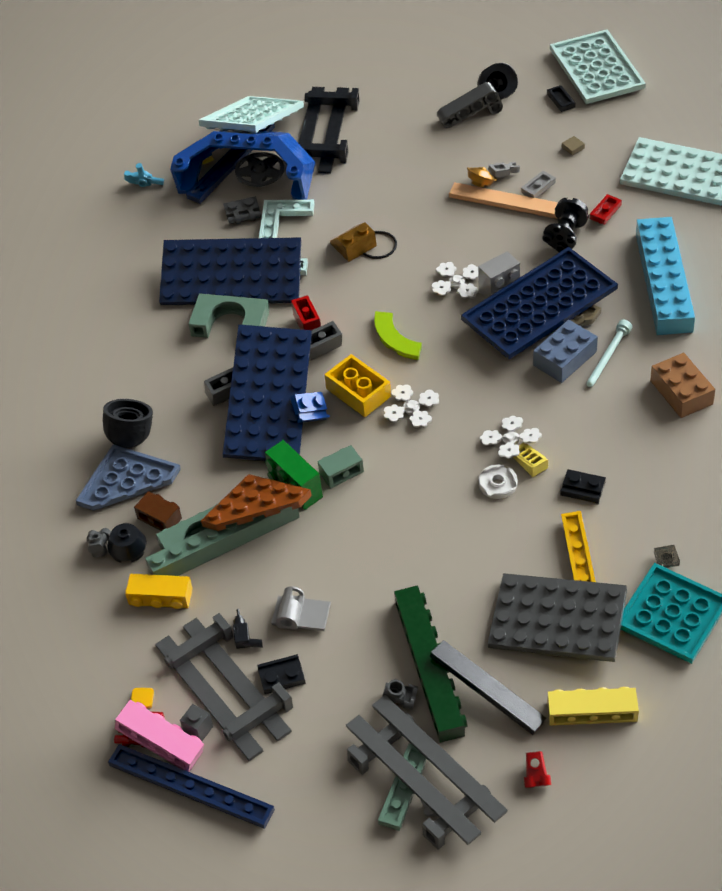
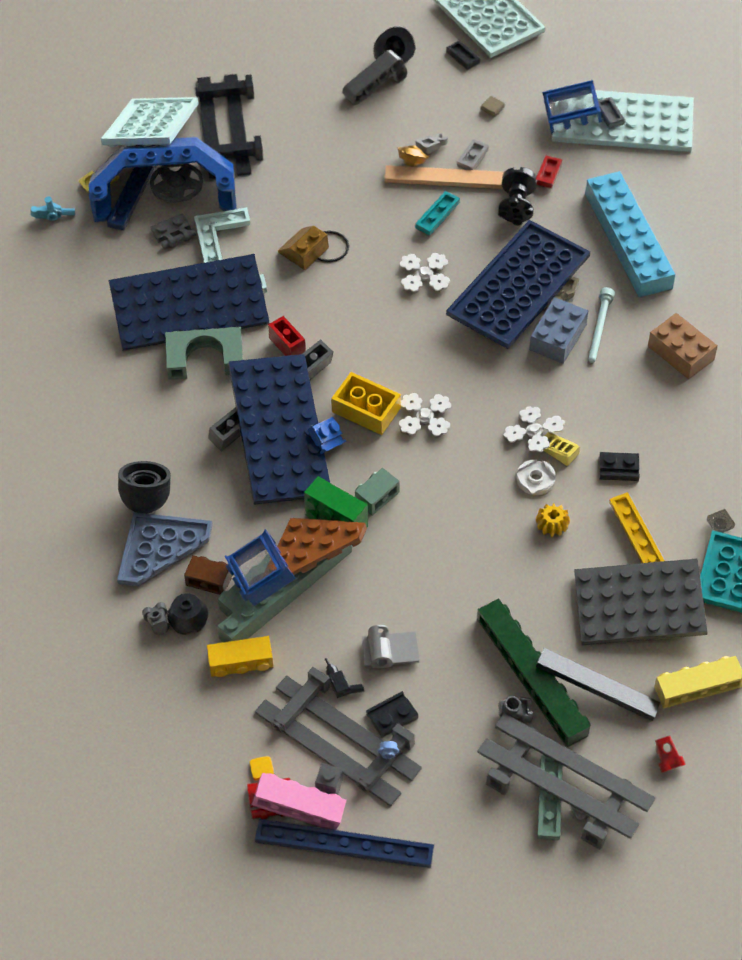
camera: 20 degrees left, 5 degrees up
(198, 512) = (259, 569): none -> blue window
(259, 705) = (388, 749): none -> light blue plate
(393, 339) = (380, 346): lime tile -> none
(487, 230) = (437, 213): none -> teal plate
(497, 274) = (469, 262): light grey brick -> none
(498, 523) = (552, 520): none -> yellow gear
(645, 150) = (571, 103): none -> window
(681, 165) = (610, 113): none -> dark grey tile

